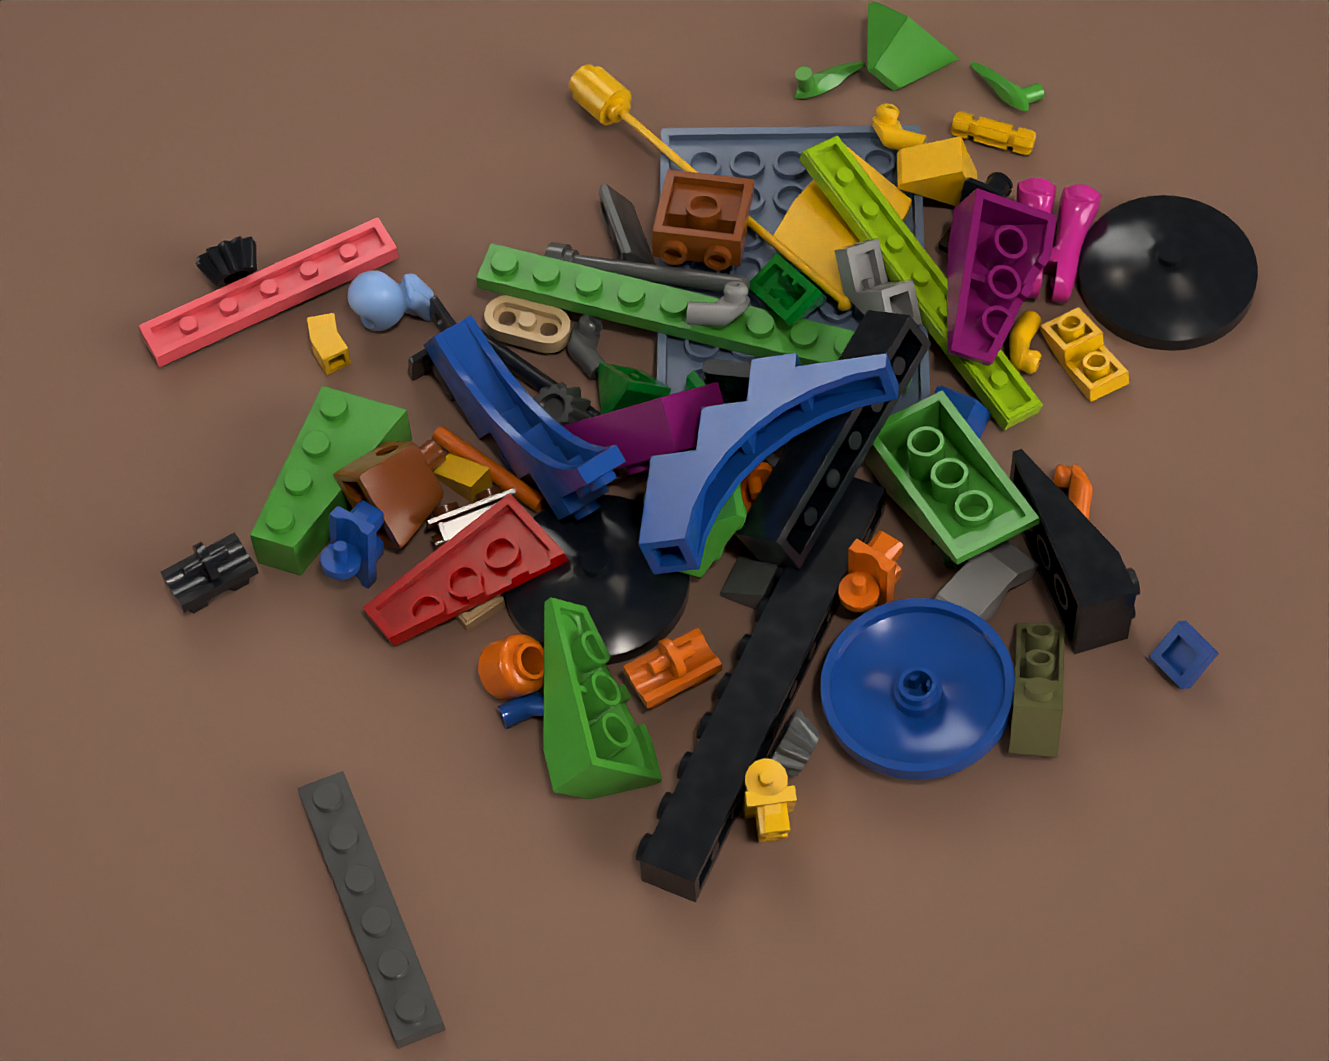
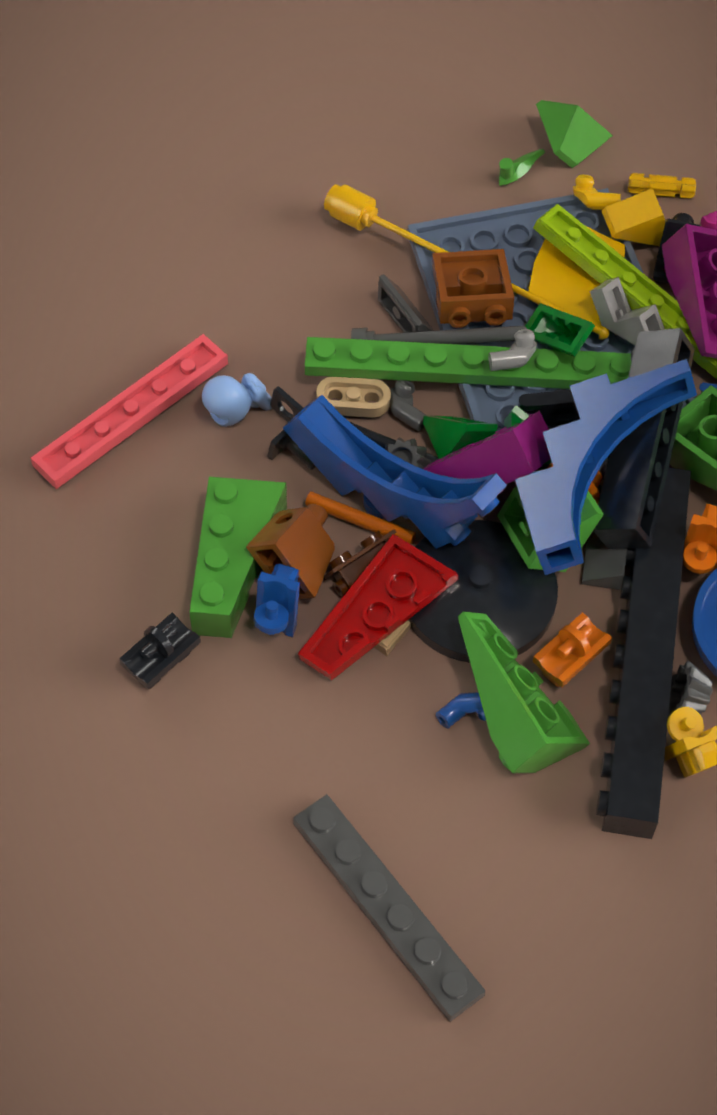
camera: 20 degrees left, 0 degrees up
(229, 261) = (91, 391): black piece -> none
(327, 343) = (193, 443): yellow piece -> none
(464, 476) = (345, 529): yellow piece -> none
(512, 667) = (443, 676): orange head -> none
(1009, 91) = (658, 151): bright green bar -> none

